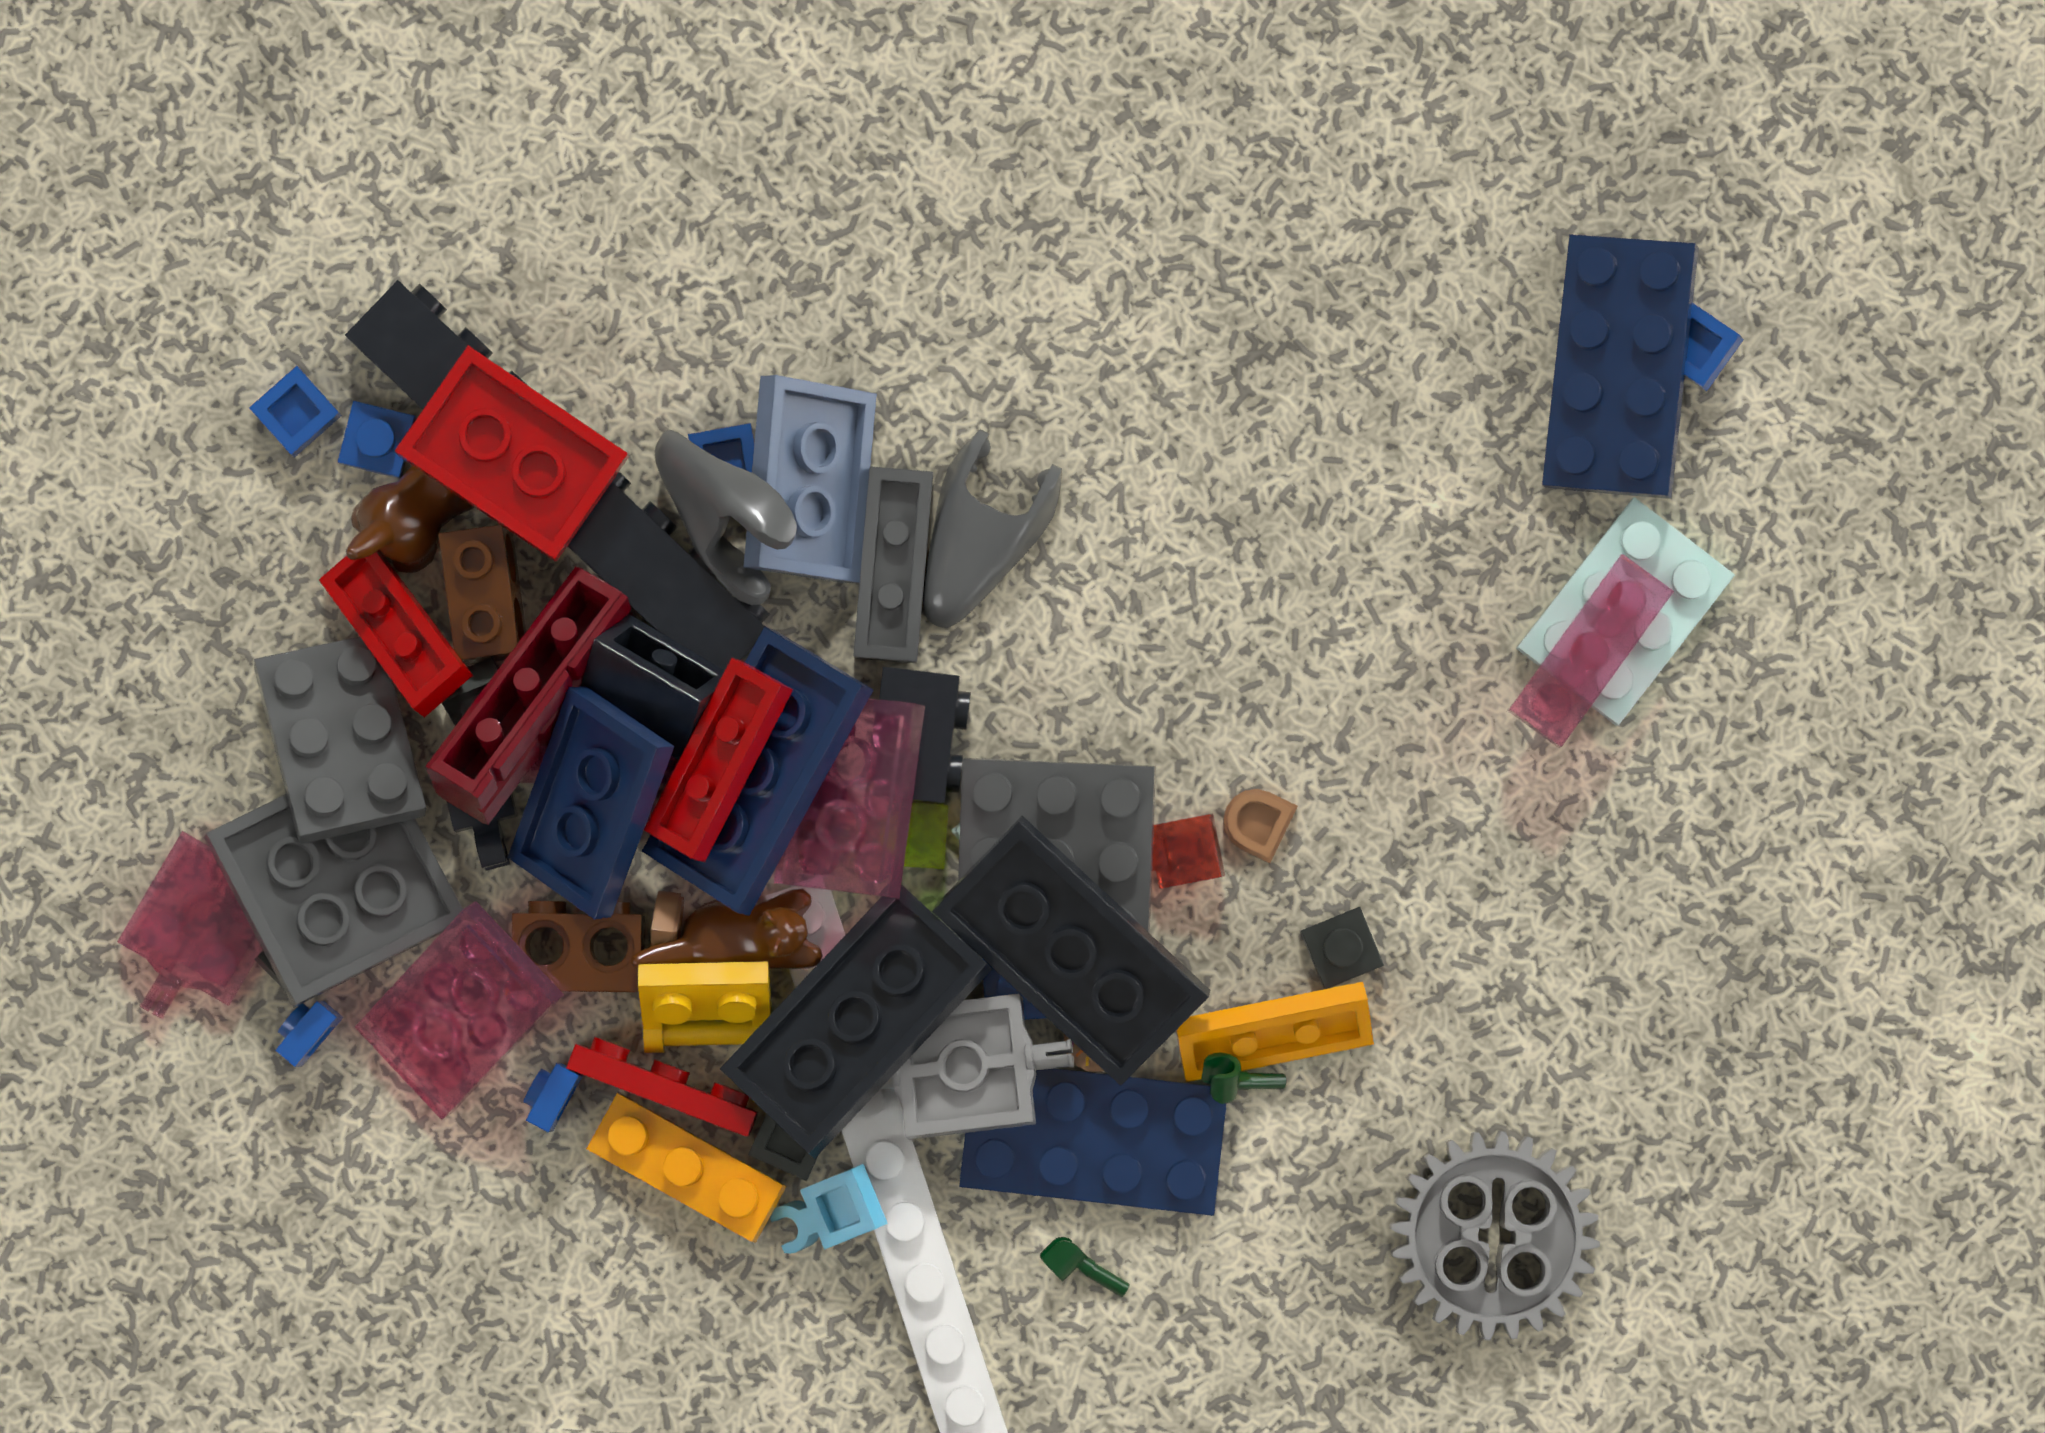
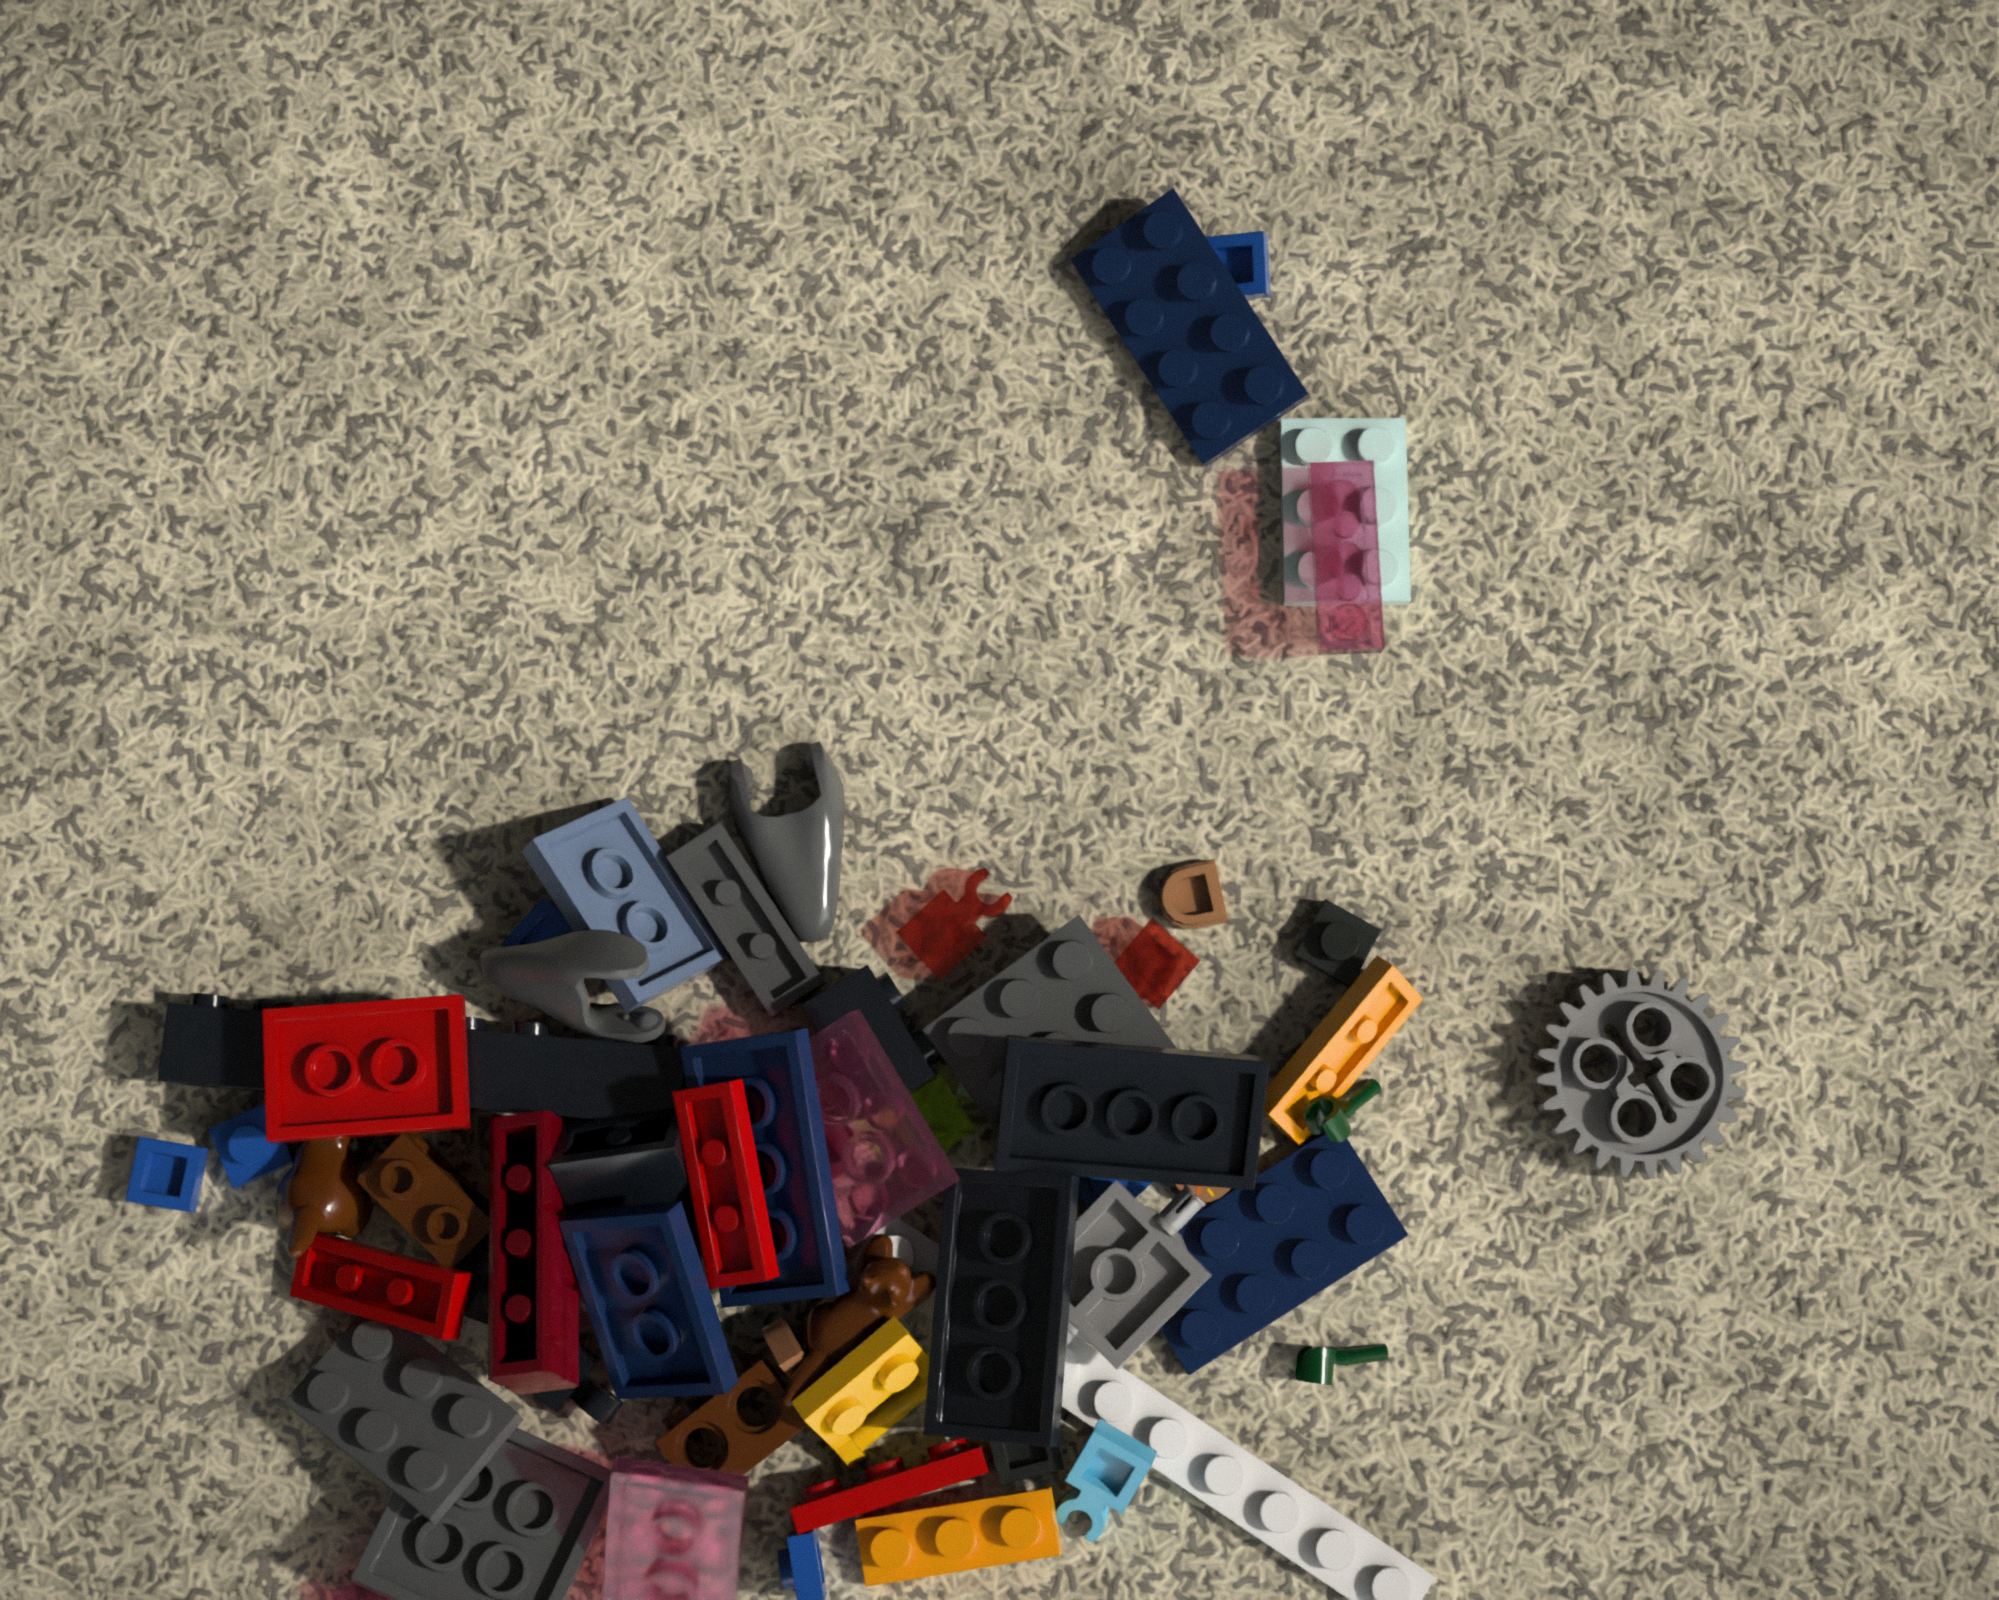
camera: 35 degrees left, 5 degrees down
(1042, 696) = (947, 930): none -> clear red plate

